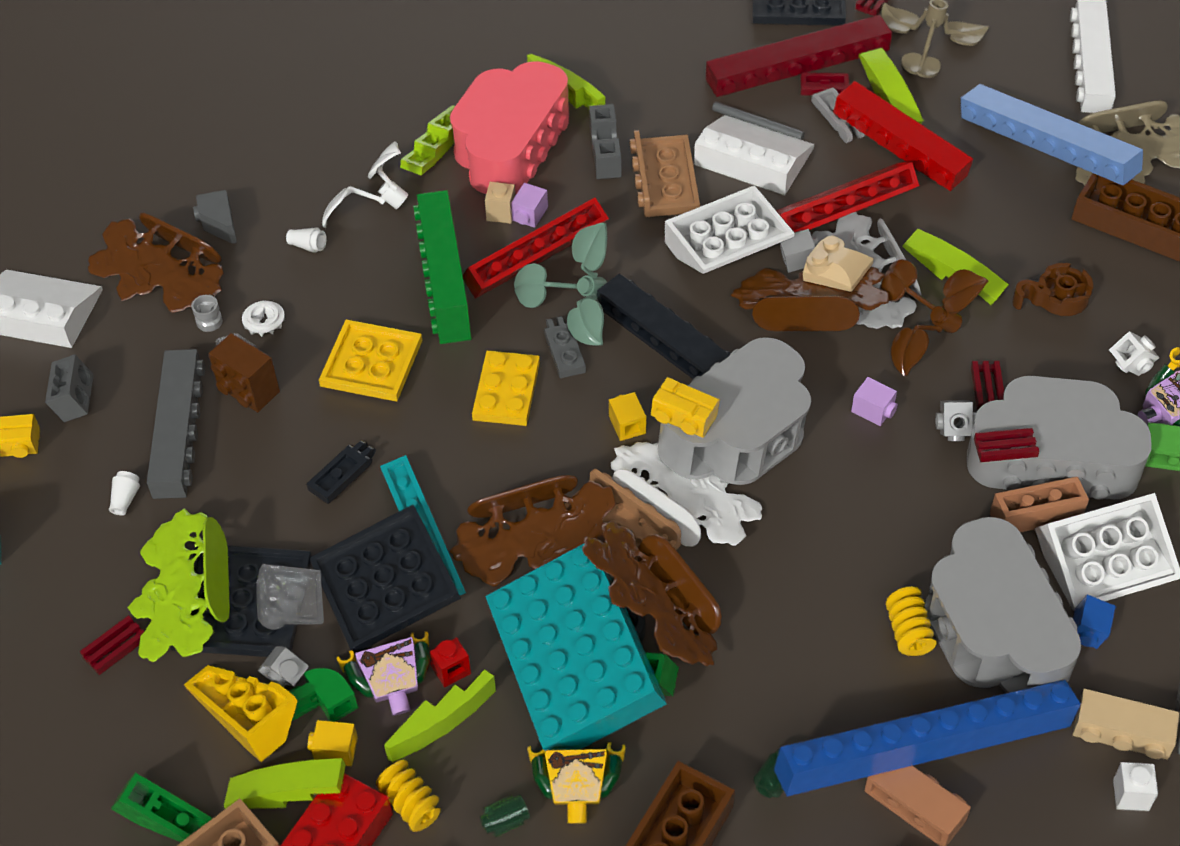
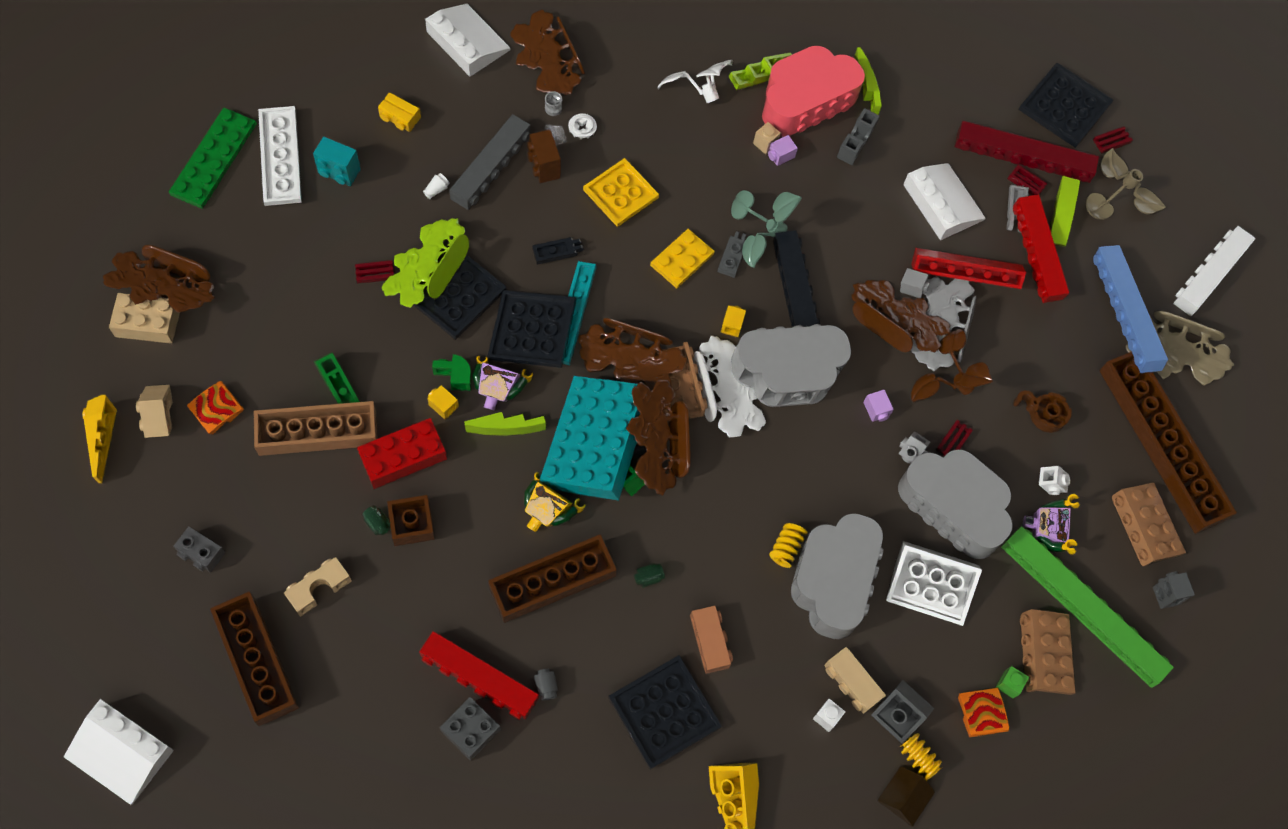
camera: 25 degrees right, 15 degrees up
(69, 388) = (448, 104): dark grey brick -> none
(215, 215) = (602, 41): dark grey slope -> none
(250, 710) = (413, 353): yellow wedge -> none
(283, 667) = (445, 344): light grey brick -> none
(286, 782) = (402, 407): lime slope -> none
(289, 596) = (474, 307): clear slope -> none
(309, 239) = (642, 91): white cone -> none
(408, 795) = (458, 455): yellow piece -> none
(442, 267) = (700, 159): green brick -> none
(447, 655) = (533, 396): red brick -> none
(504, 815) = (497, 499): clear green brick -> none
(532, 248) = (763, 181): red brick -> none
(664, 175) = (877, 181): medium nougat bracket -> none
(684, 407) = (753, 343): yellow brick -> none
(725, 230) = (880, 244): white slope -> none
(757, 120) = (965, 181): dark grey bar -> none
(835, 265) = (926, 308): tan slope -> none
(925, 737) = (738, 613): blue brick -> none
(946, 259) = (999, 353): lime slope -> none
(1004, 441) = (922, 479): dark red tile -> none
(1040, 503) = (914, 530): nougat brick -> none
(1093, 621) = (886, 614): blue brick -> none

